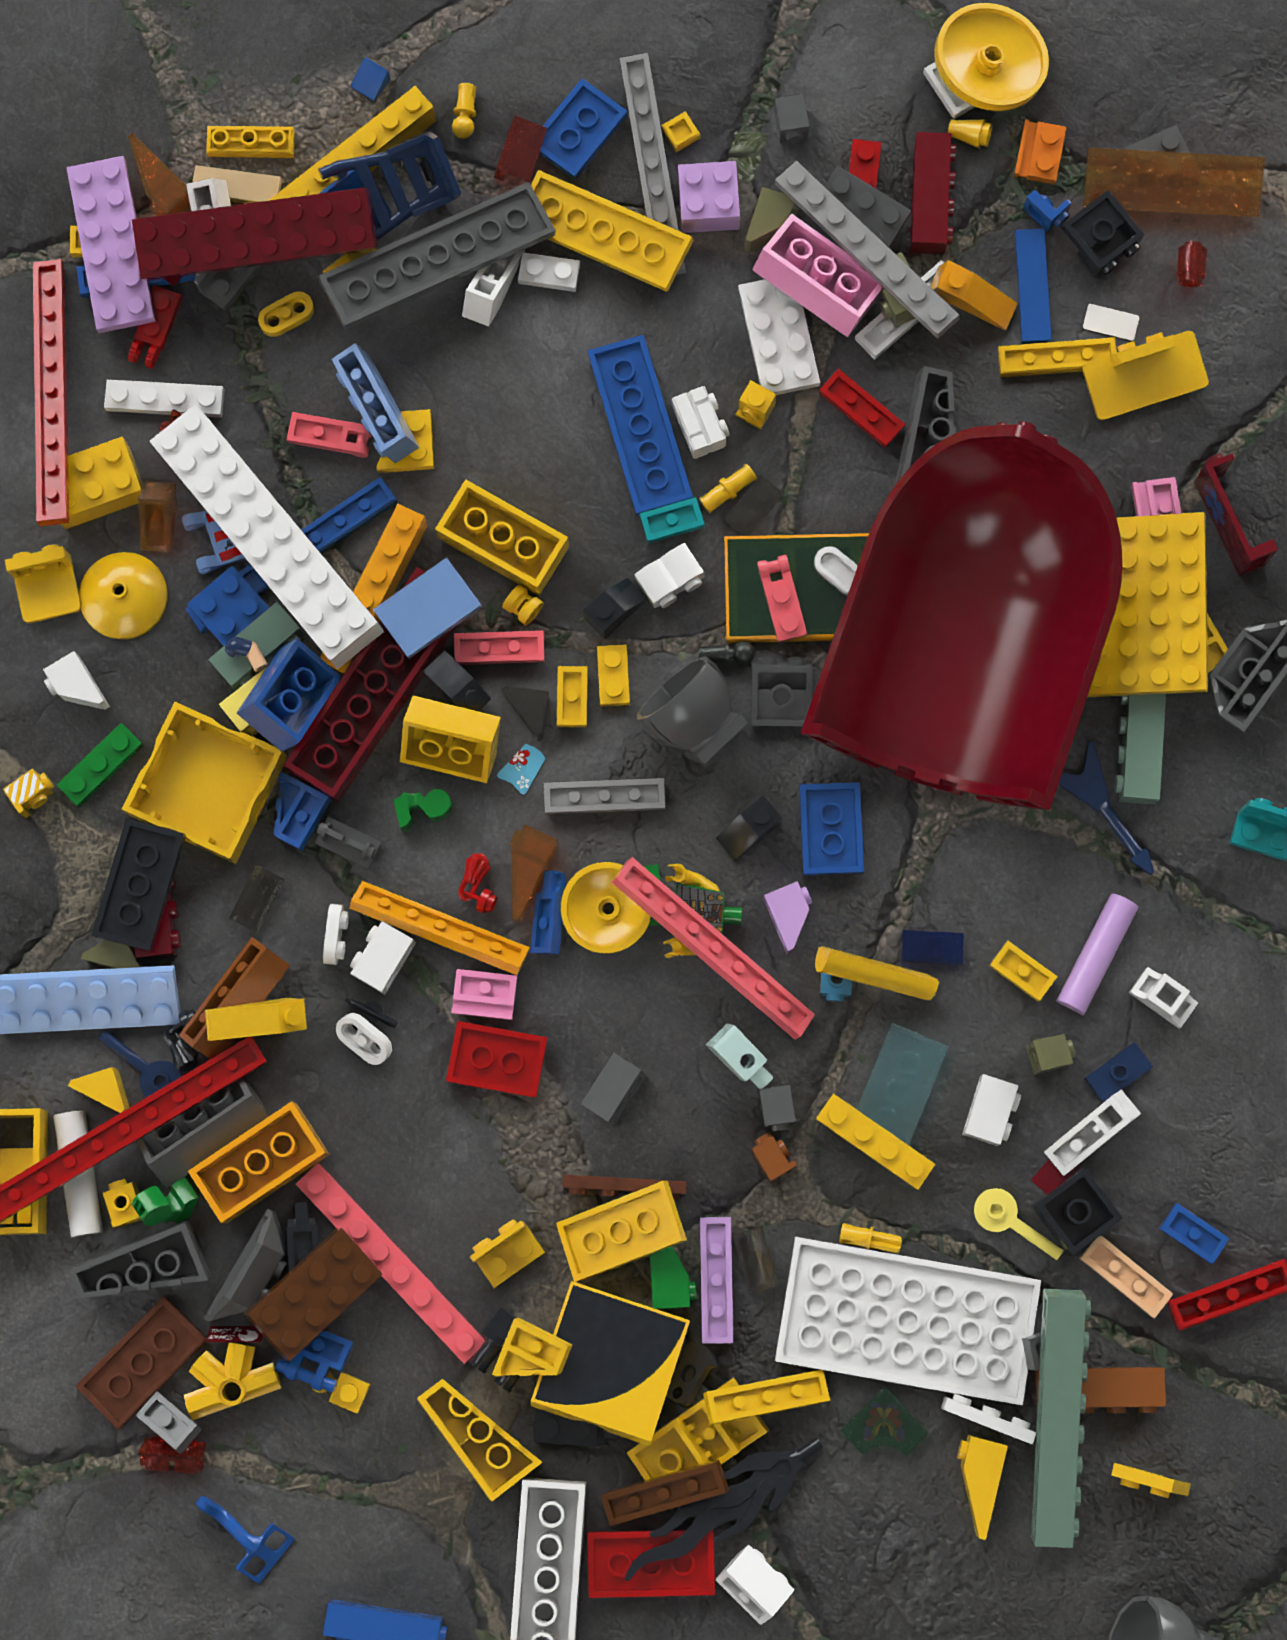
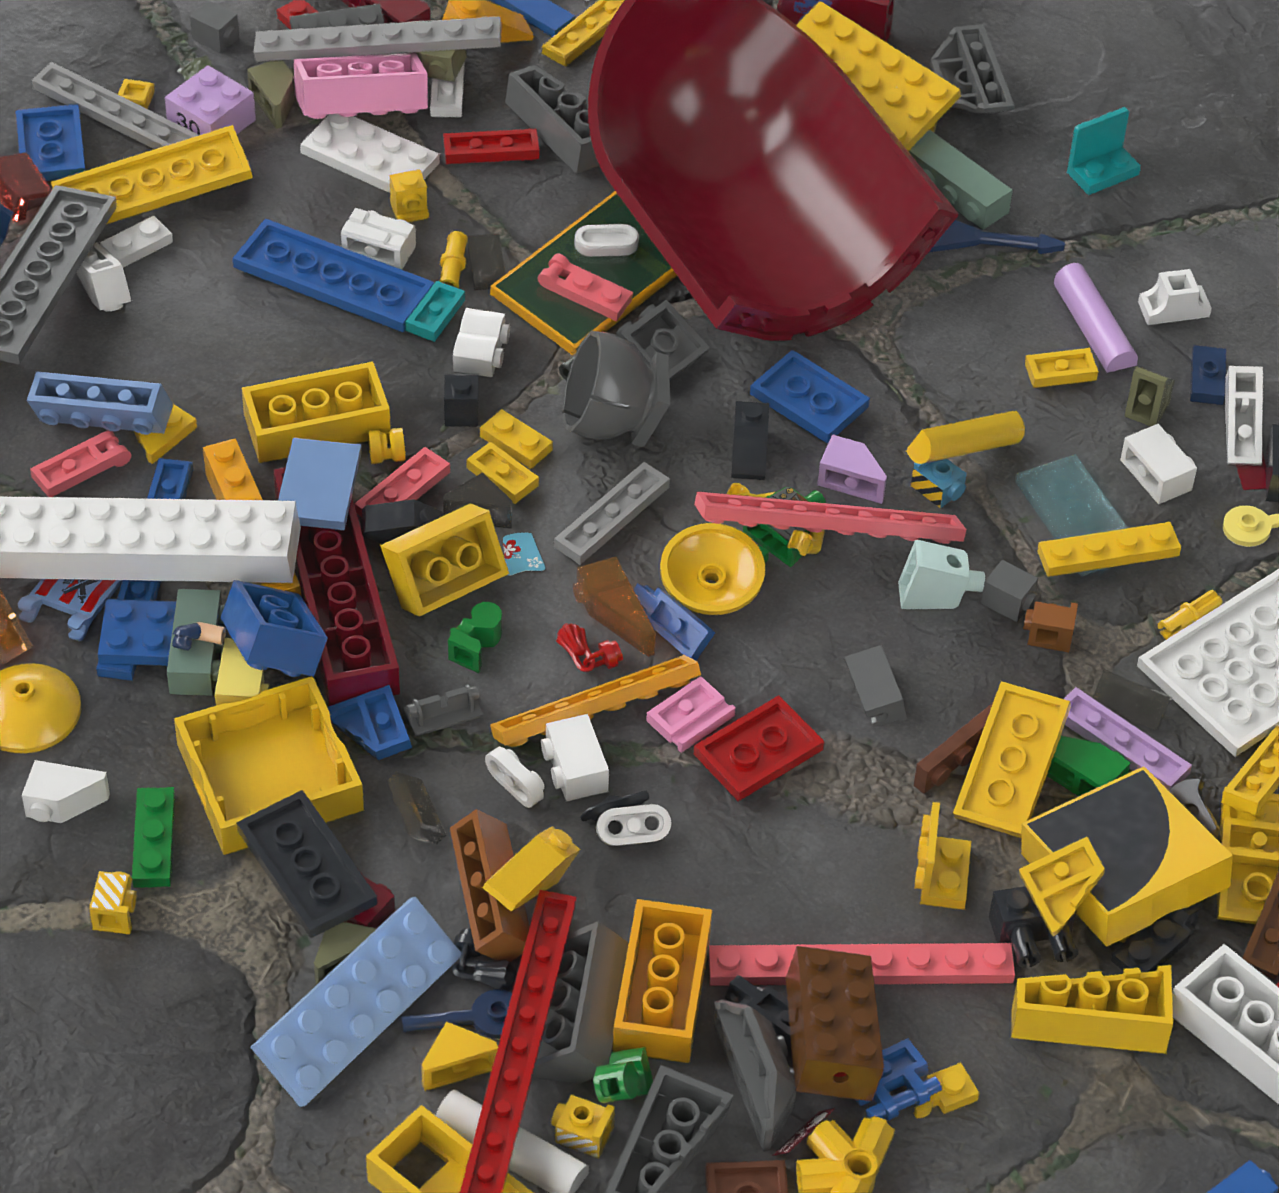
camera: 55 degrees left, 30 degrees down
(932, 947) = (983, 402): clear blue plate -> none

